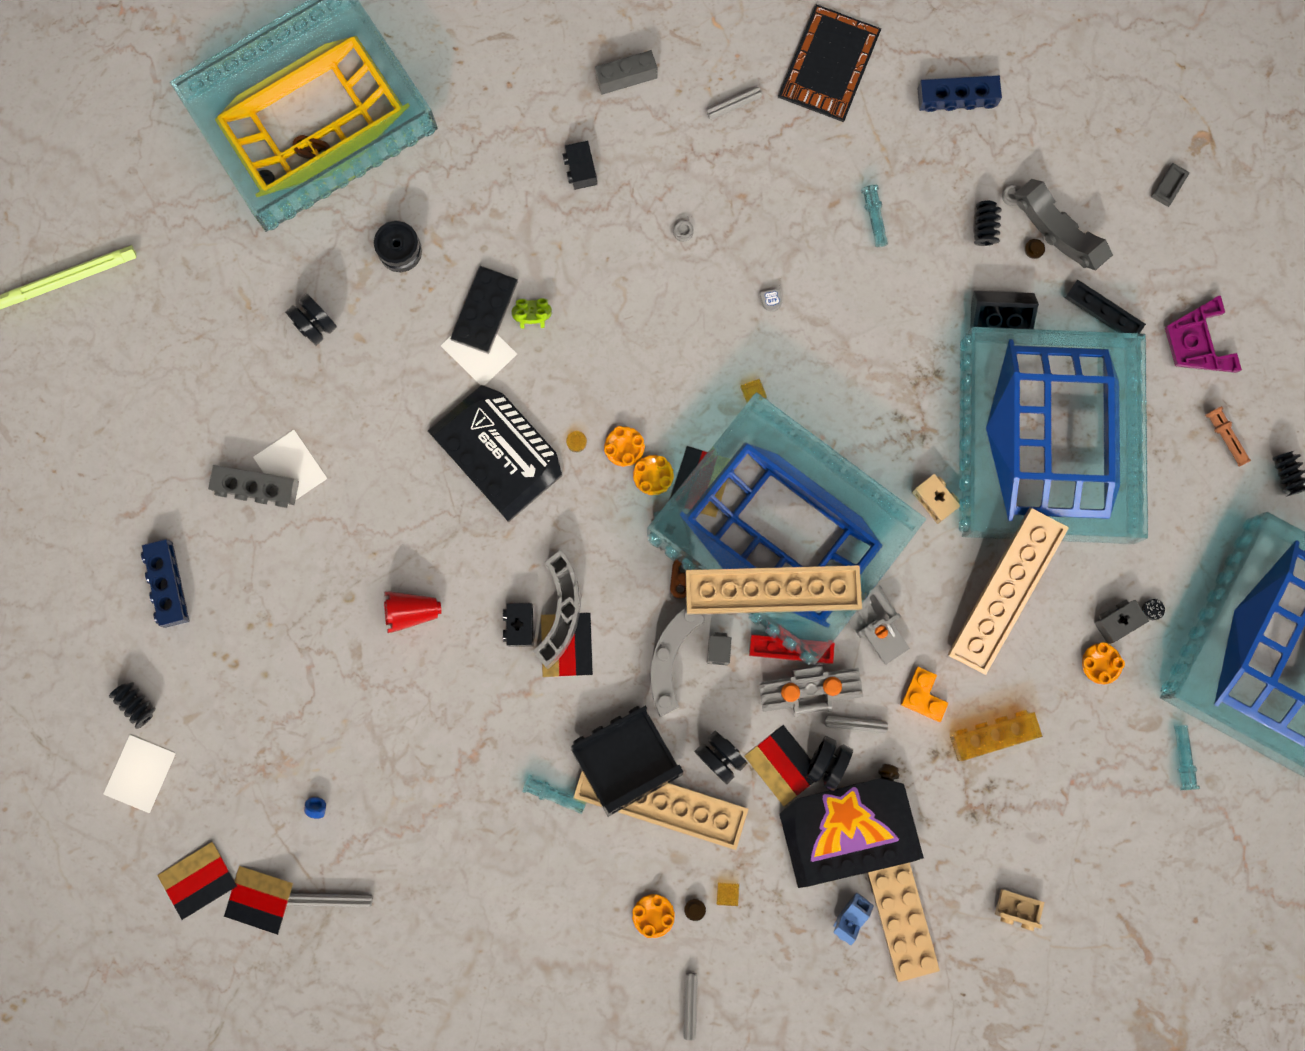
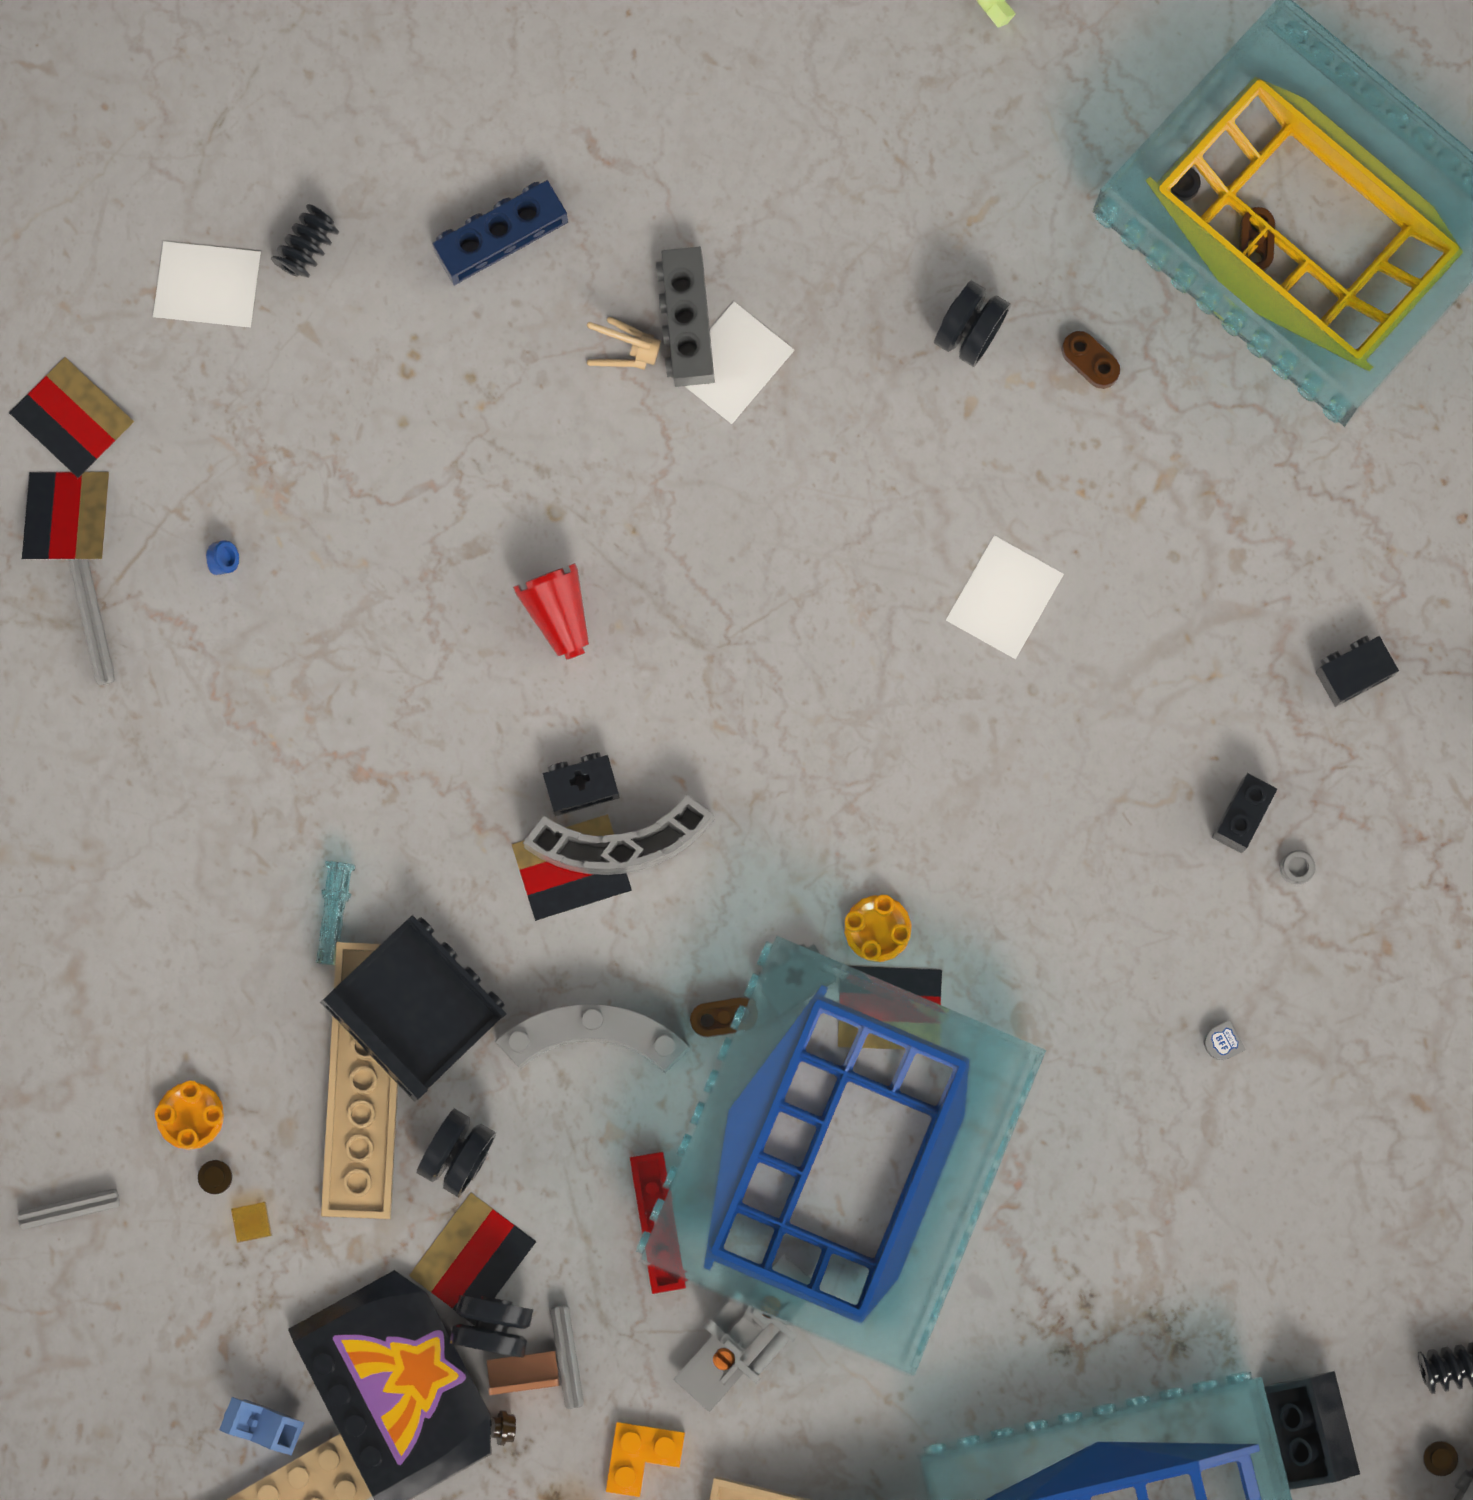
camera: 75 degrees right, 0 degrees up
(264, 516) = (643, 347): none -> tan plant
(353, 262) = (1088, 360): none -> reddish brown plate
(397, 246) = (1126, 440): black wheel -> none
(484, 310) = (1071, 586): black plate -> none
(498, 450) = (848, 673): black slope -> none
(531, 312) = (1087, 661): lime plate -> none
(576, 441) = (898, 792): clear yellow tile -> none
(624, 446) = (911, 869): light orange dish -> none
(645, 249) = (1244, 813): none -> black brick
(719, 649) = (624, 1105): dark grey brick -> none
(751, 388) = (1061, 1052): clear yellow tile -> none
(773, 590) = (730, 1158): tan plate -> none
(810, 682) = (611, 1264): light grey piece -> none
(862, 747) = (523, 1374): none -> nougat panel
(874, 206) = (1431, 1168): clear light blue pin -> none
(937, 509) = (968, 1375): tan brick -> none

